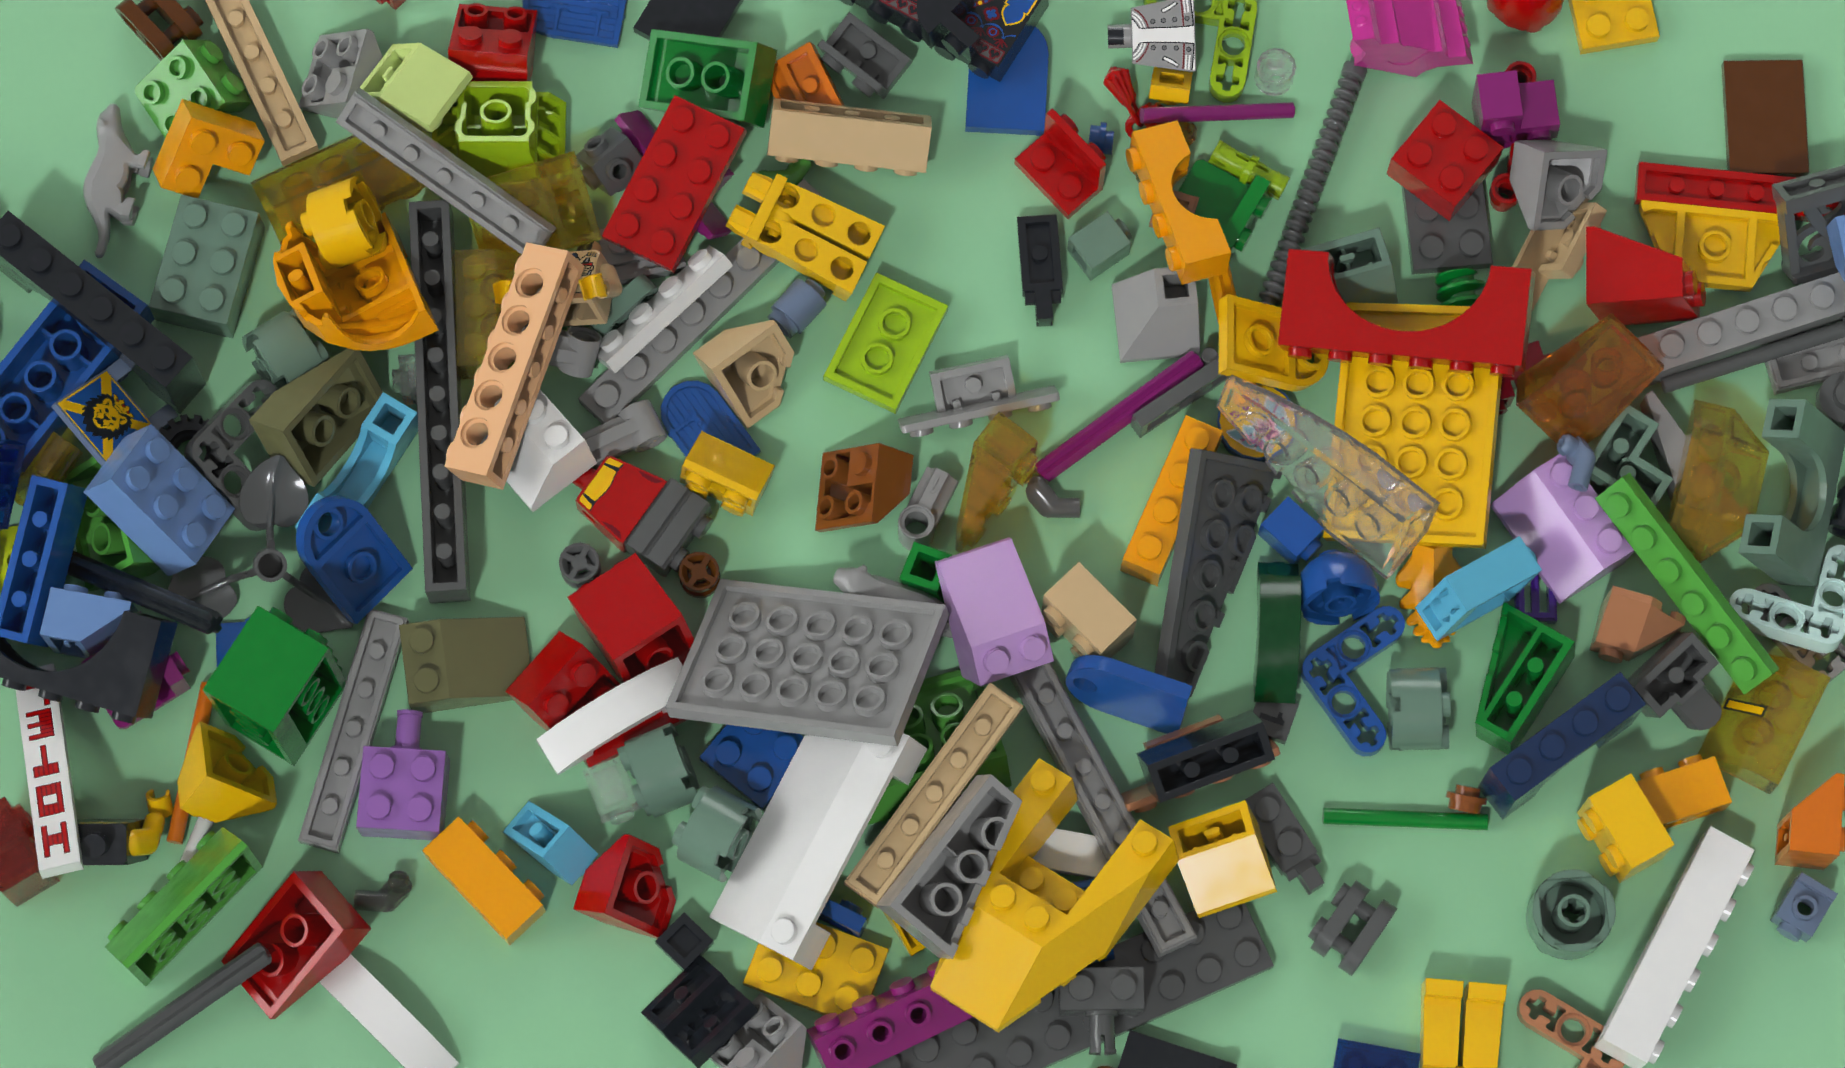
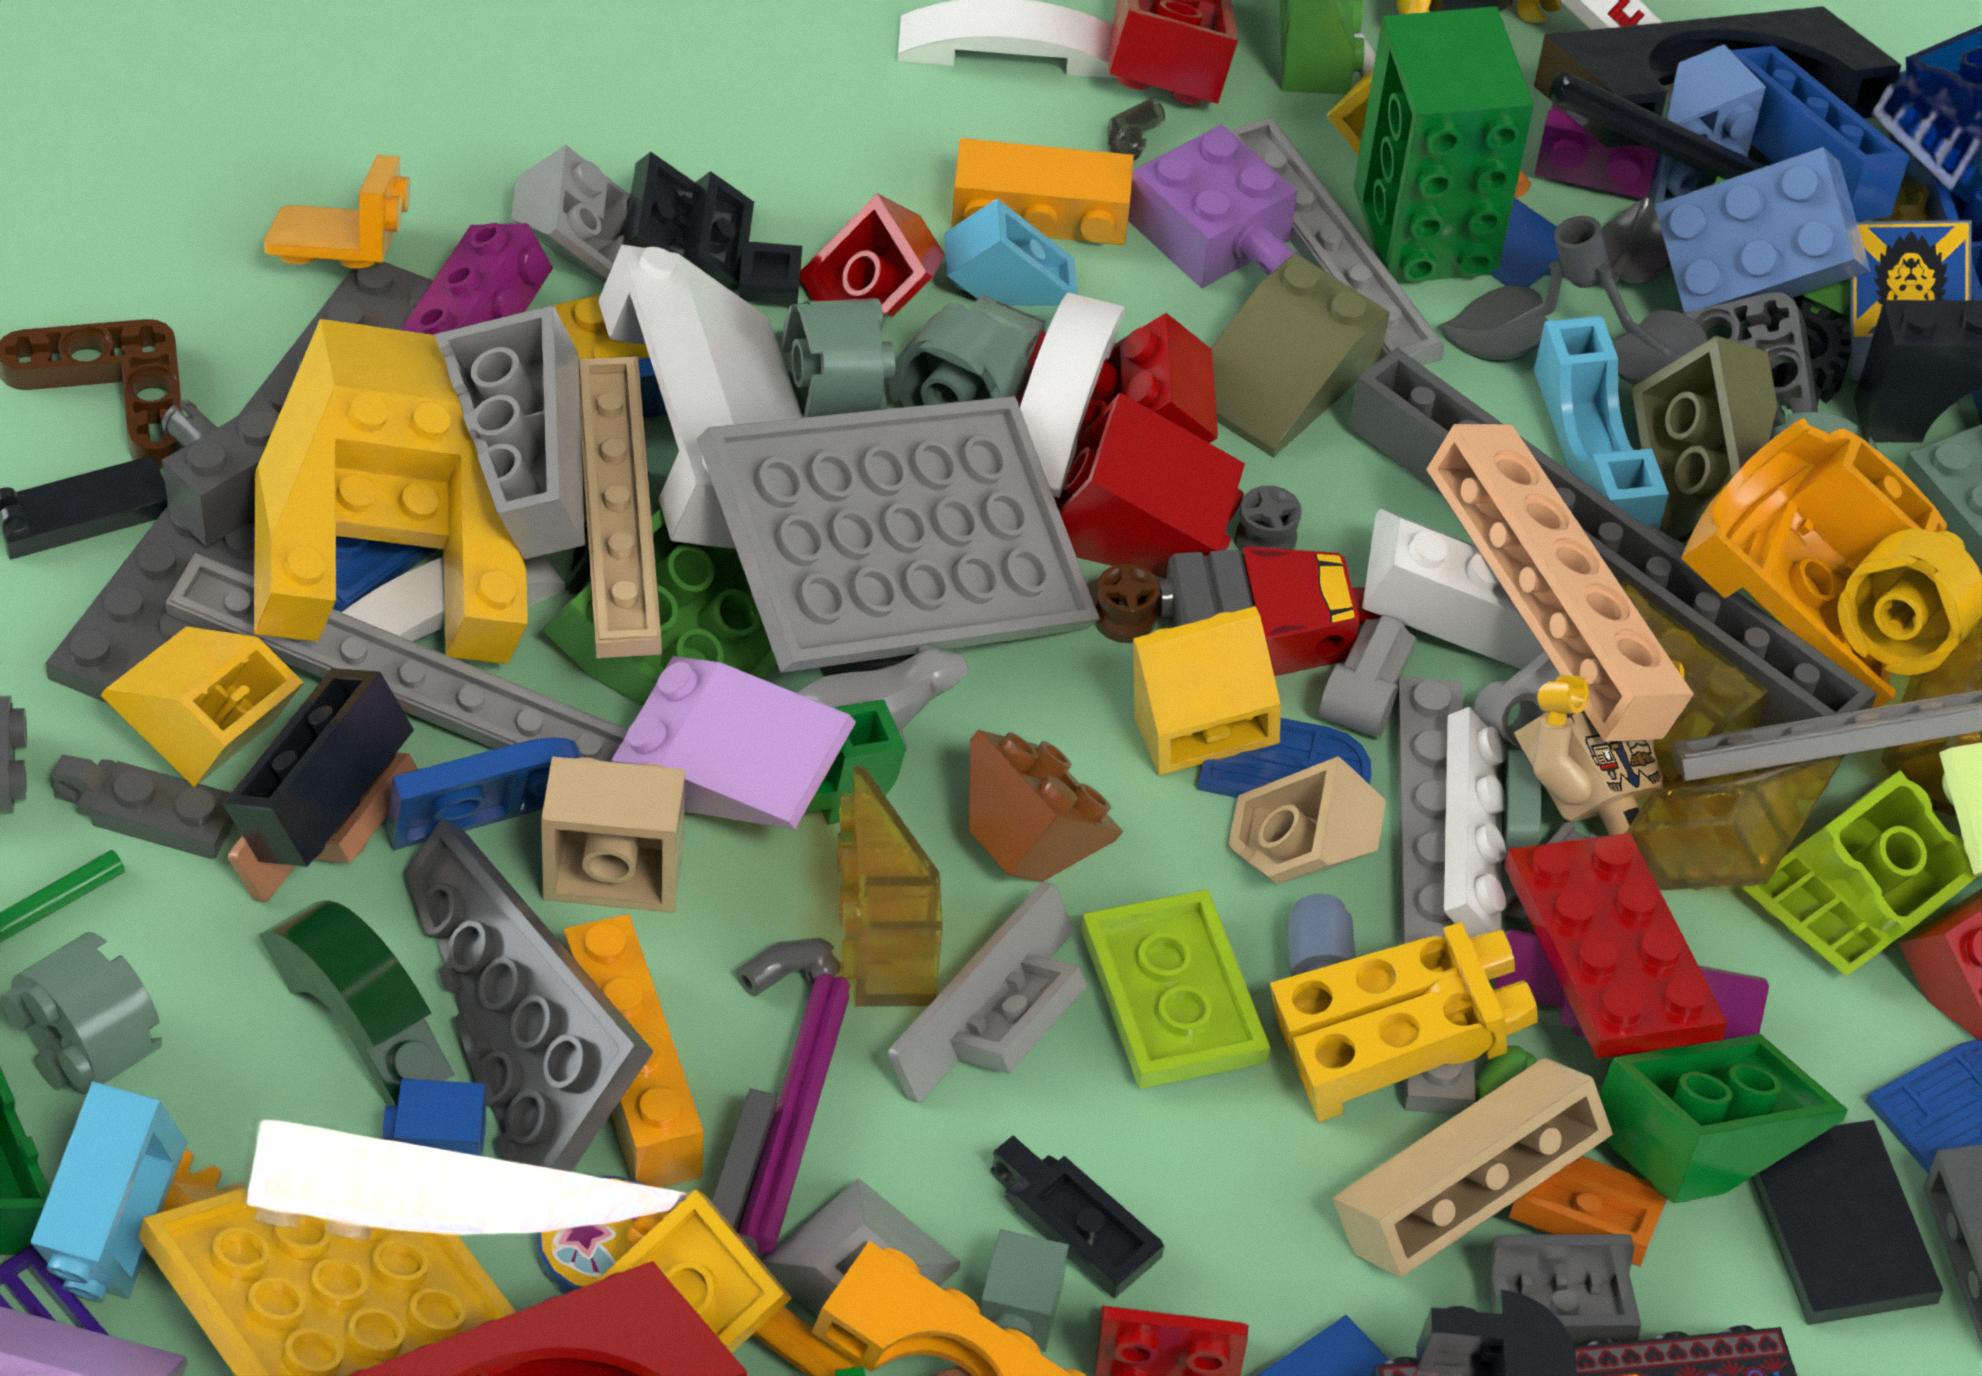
camera: 135 degrees right, 25 degrees down
(352, 558) = (1518, 334): blue tile -> none
(608, 161) = (1722, 926): dark grey brick -> none
(926, 506) = (939, 831): light grey piece -> none
(1276, 719) = (267, 908): dark grey tile -> none
(1337, 587) = (321, 1081): blue cylinder -> none
(1341, 666) = (232, 1034): blue beam -> none

